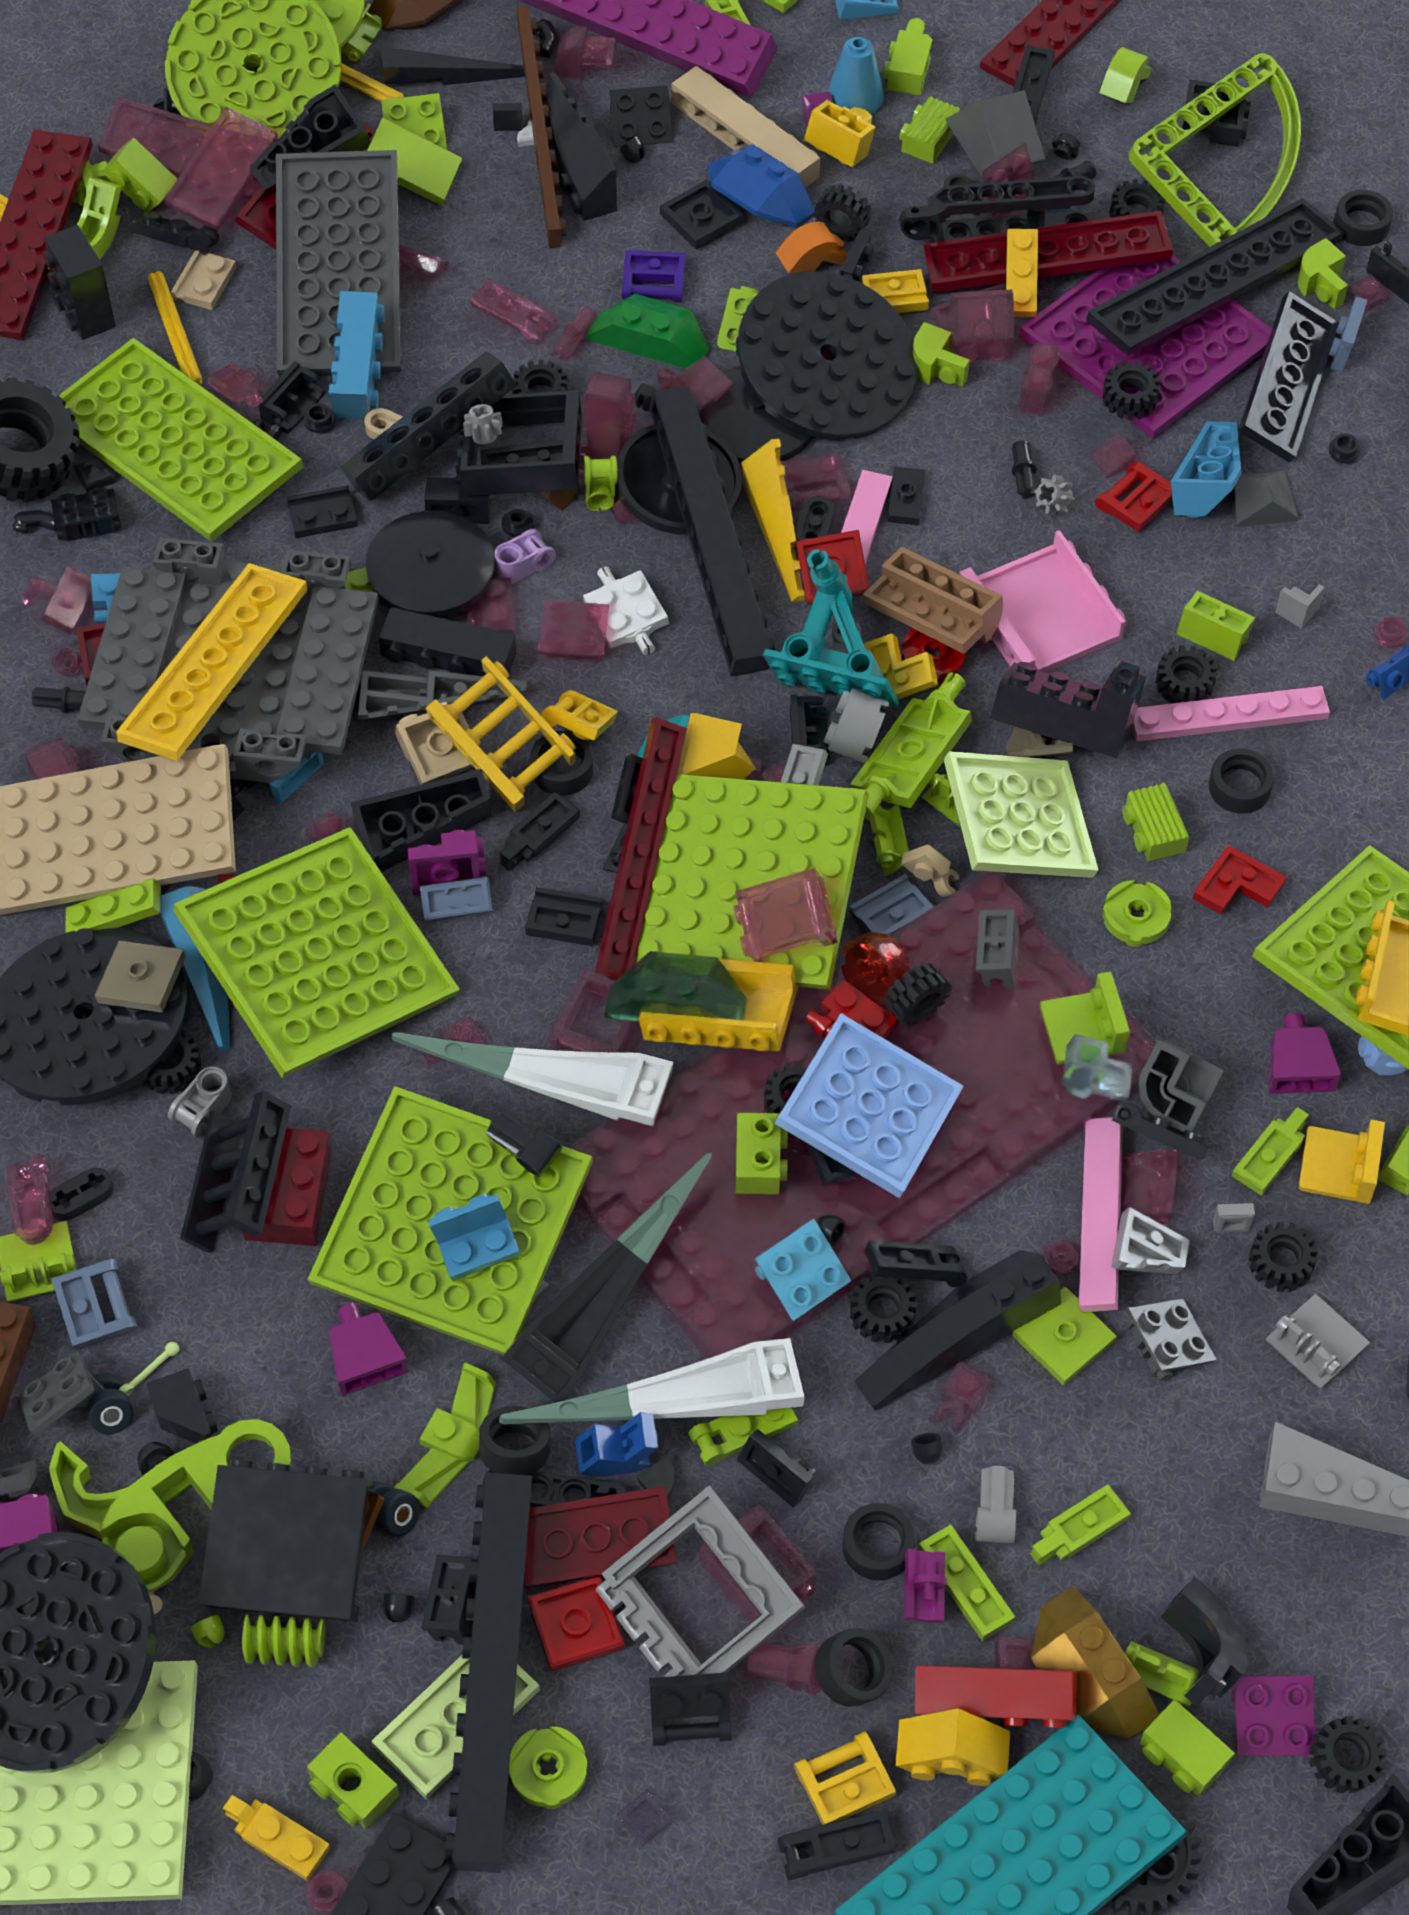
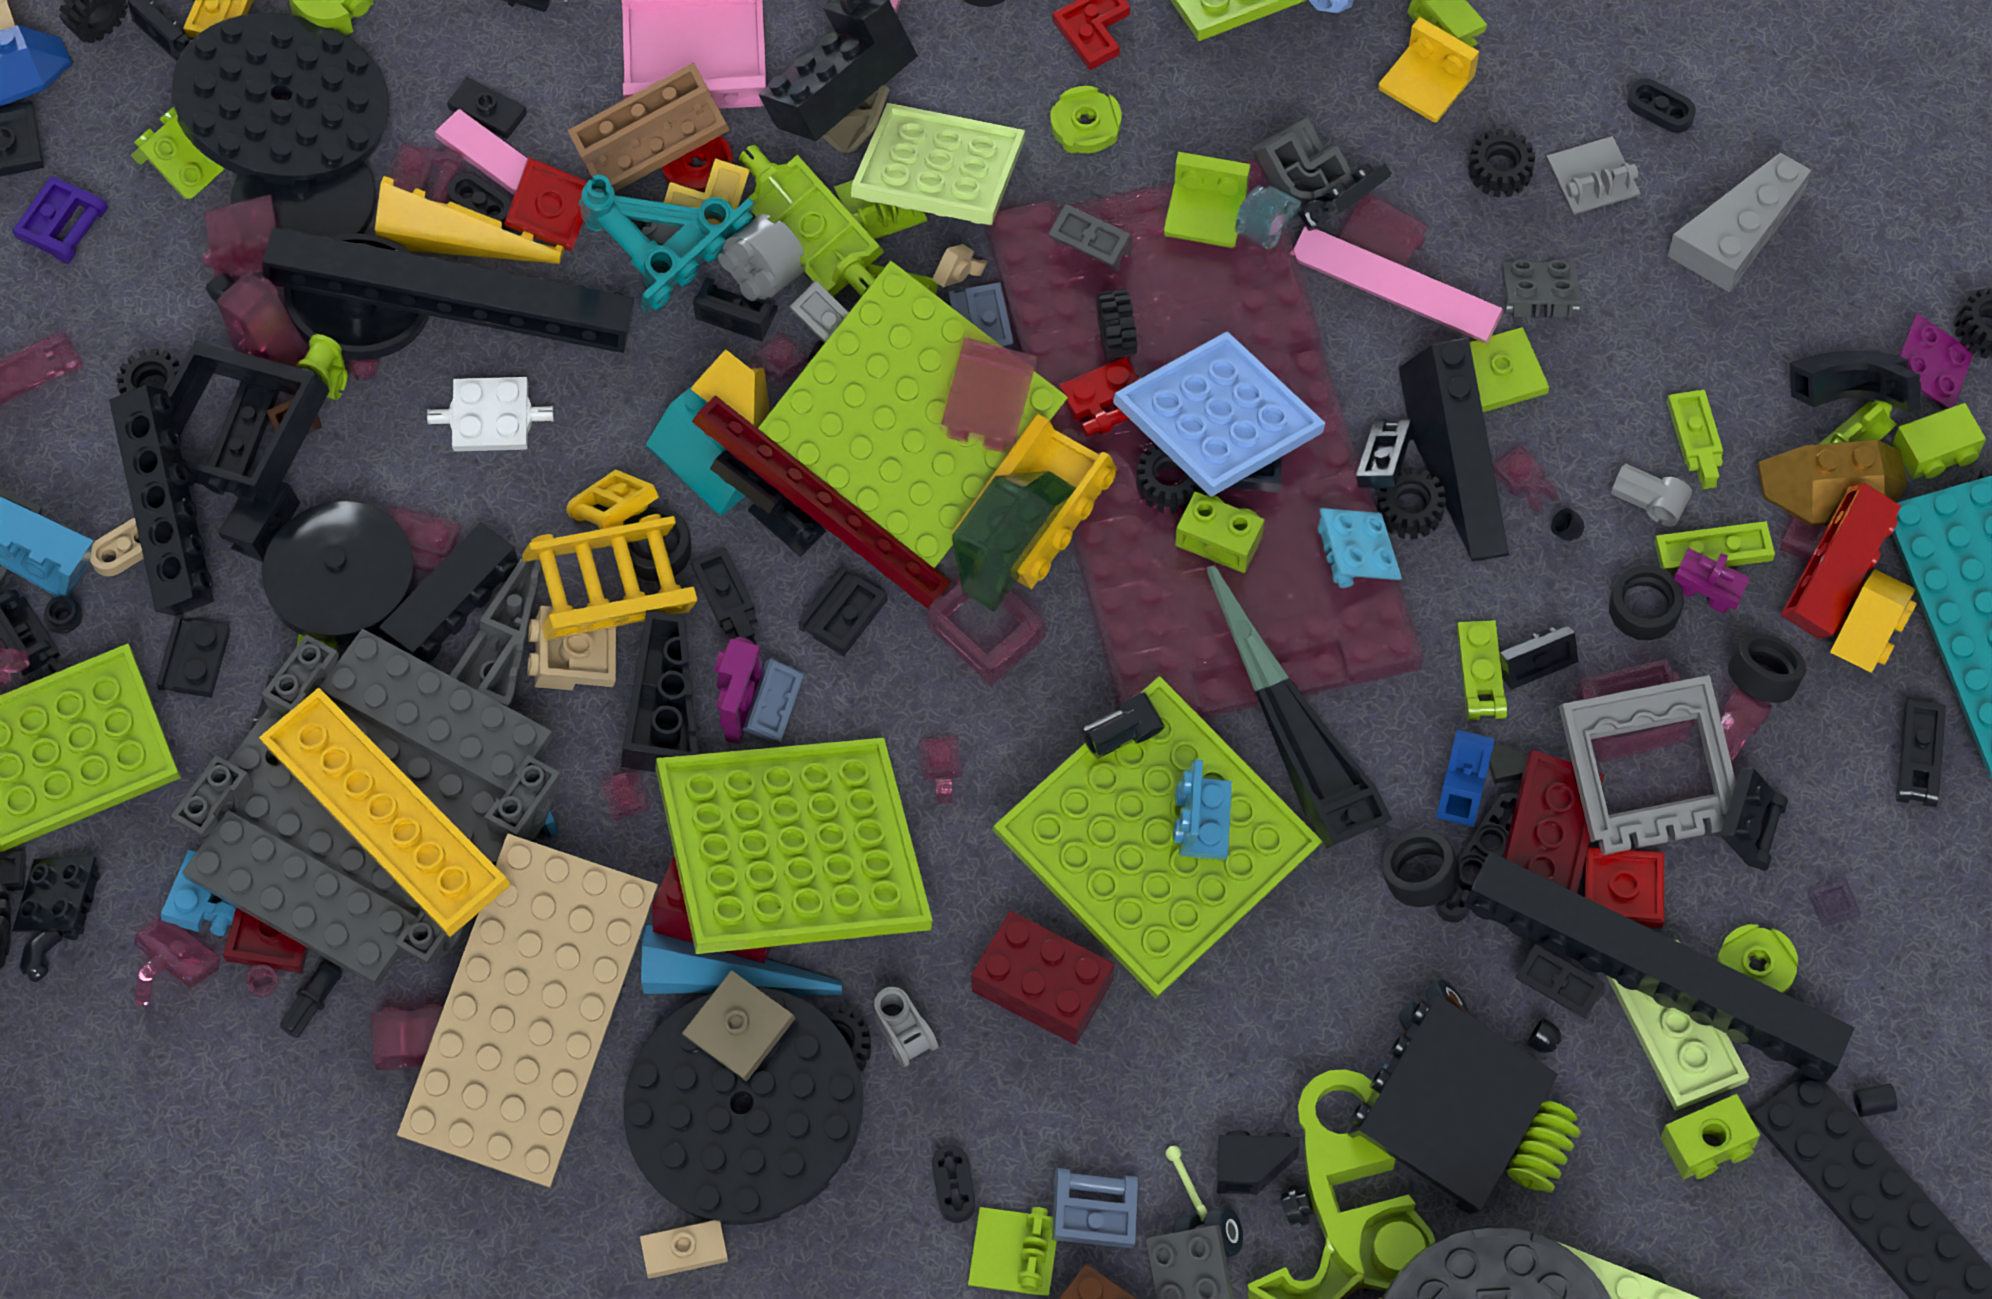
camera: 65 degrees left, 5 degrees up
(30, 1200) = (946, 1230): clear pink plate -> none
(116, 908) = (627, 1032): lime plate -> none
(208, 1631) = (1500, 1214): lime hinge -> none
(254, 1175) = (1046, 993): black fence -> none
(277, 1836) = (1734, 1226): yellow hinge -> none
(319, 1881) = (1810, 1190): clear pink plate -> none
(364, 1350) = (1259, 971): magenta torso -> none
(451, 1437) = (1382, 927): lime plate -> none
(482, 424) = (203, 441): light grey gear -> none
(513, 528) = (320, 481): black plate -> none
(522, 556) = (371, 479): lavender piece -> none
(573, 630) = (497, 468): clear pink hinge -> none
(575, 333) = (93, 323): clear pink axle -> none
(600, 1082) = (1070, 641): white plate -> none
(651, 330) = (133, 252): green wedge -> none
(729, 1384) = (1447, 653): white plate -> none
(809, 247) = (122, 59): orange brick -> none
(832, 1228) = (1324, 499): black hinge -> none
(848, 1791) = (1875, 721): yellow plate -> none
(874, 964) = (1066, 347): clear red cylinder -> none
(1058, 1265) = (1416, 344): clear pink plate -> none
(1148, 1246) = (1448, 259): light grey wing -> none
(1155, 822) = (996, 60): lime brick -> none
(1233, 1217) = (1447, 182): light grey tile -> none
(1271, 1152) = (1392, 124): lime hinge -> none
(1301, 1059) = (1307, 58): magenta torso -> none

